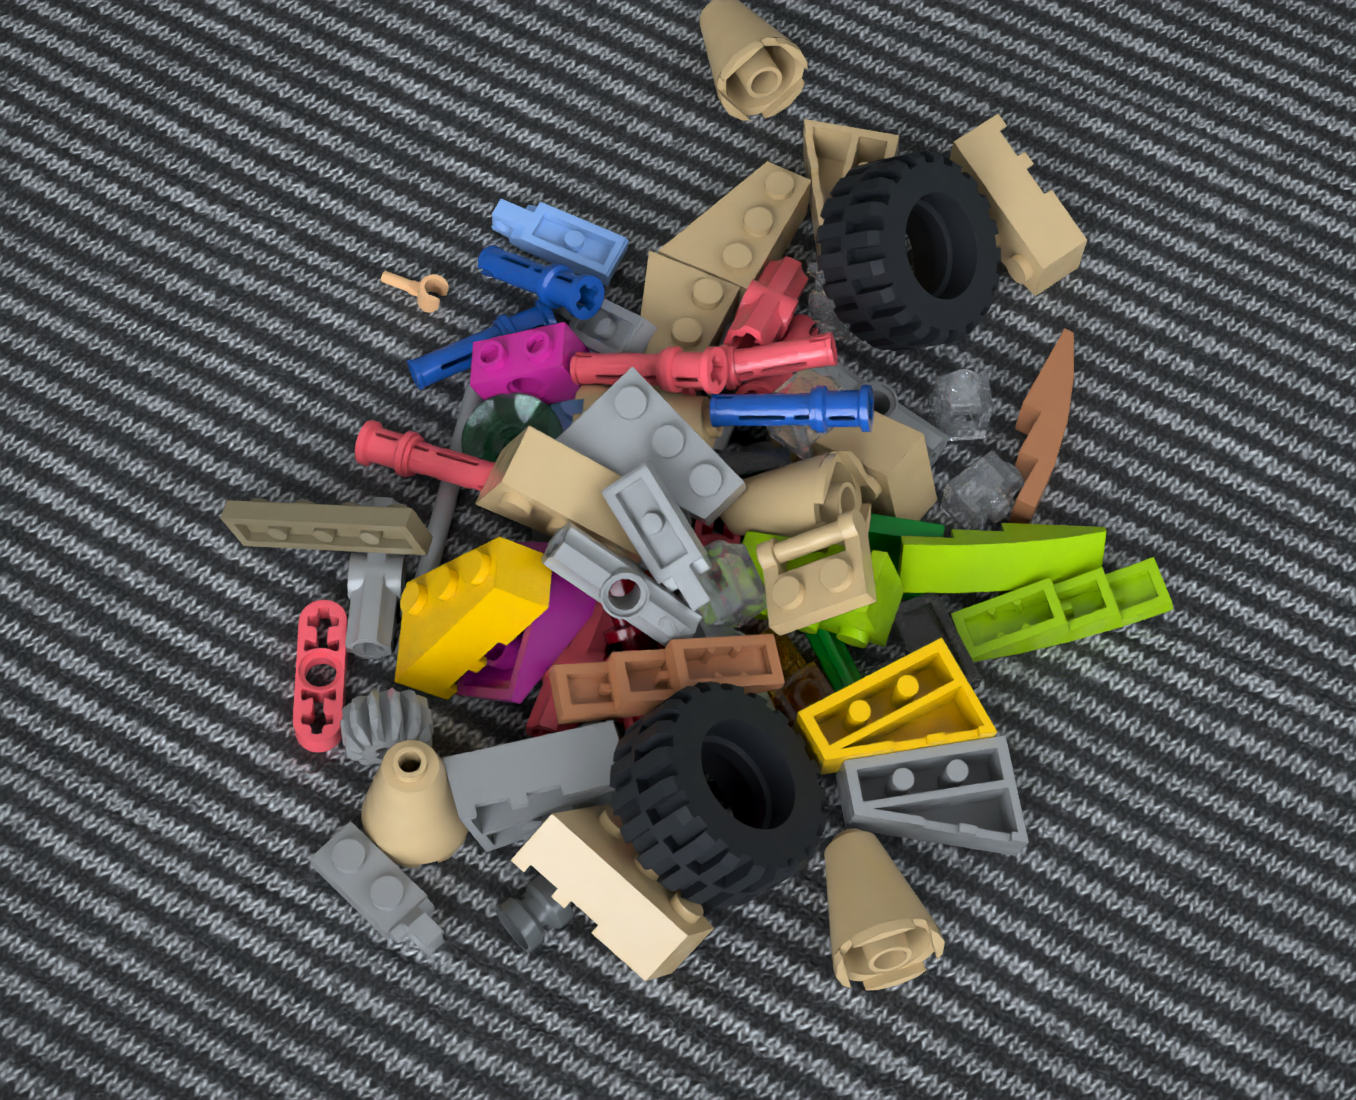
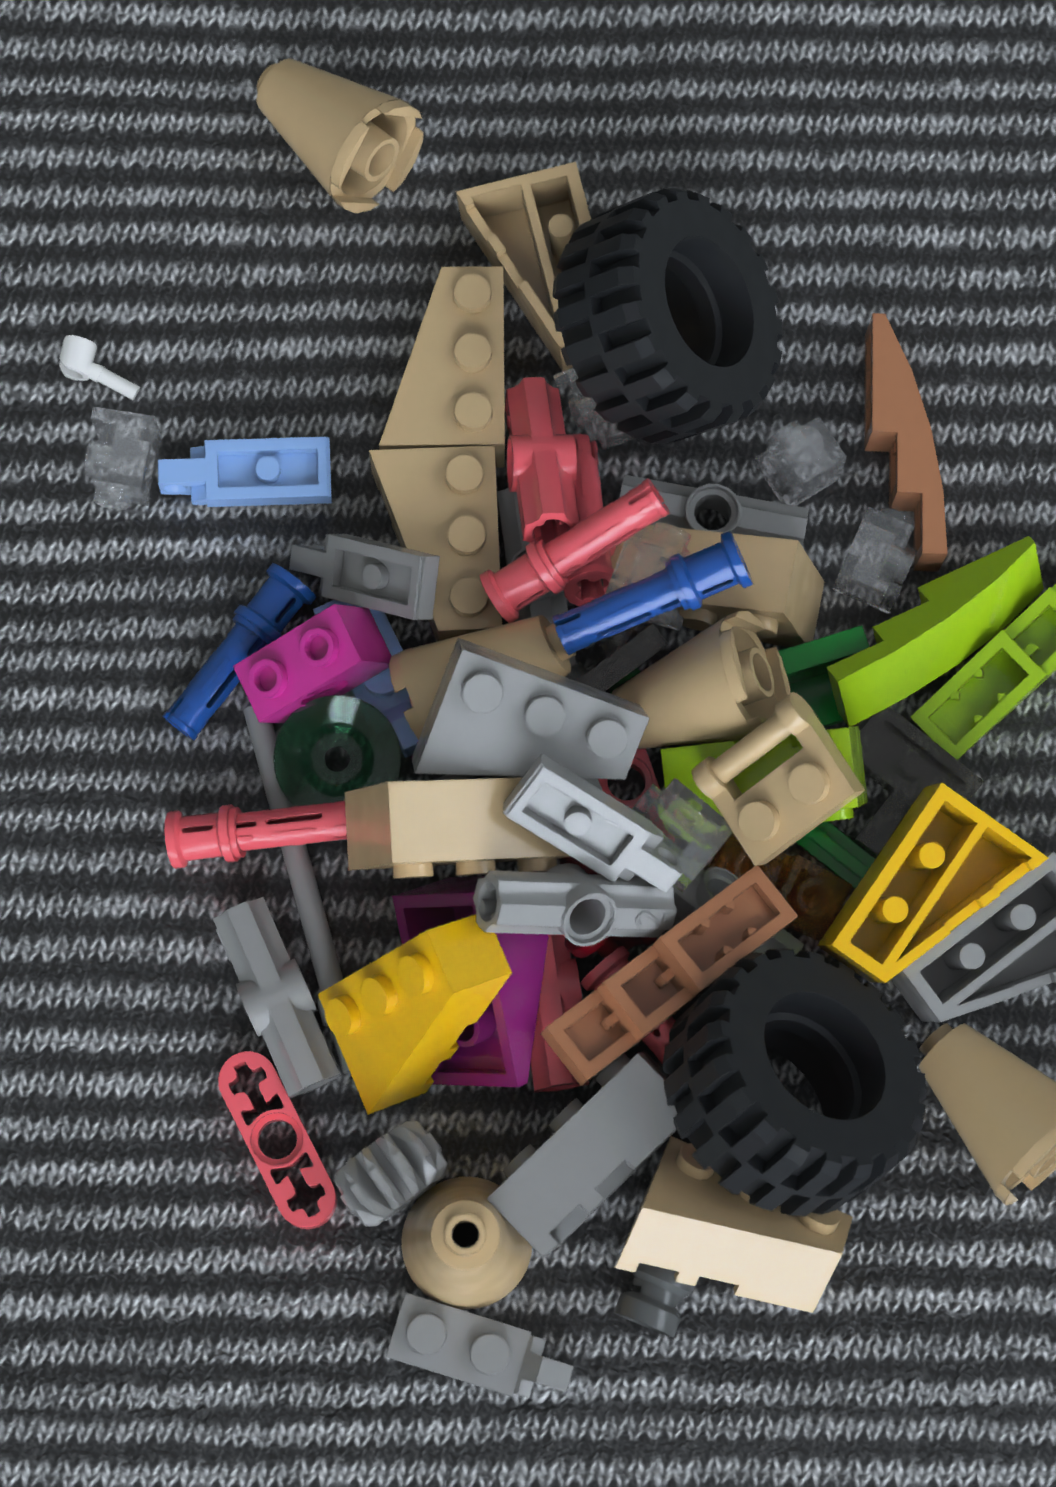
camera: 25 degrees left, 15 degrees up
(327, 527) = (222, 969): dark tan plate -> none
(429, 283) = (120, 615): light nougat hand -> none
(477, 188) = (122, 458): none -> clear brick
(483, 123) = (77, 364): none -> white hand
(553, 284) = (285, 549): blue pin -> none
(669, 369) = (488, 612): coral pin -> none
(1034, 228) = (772, 196): tan wedge -> none

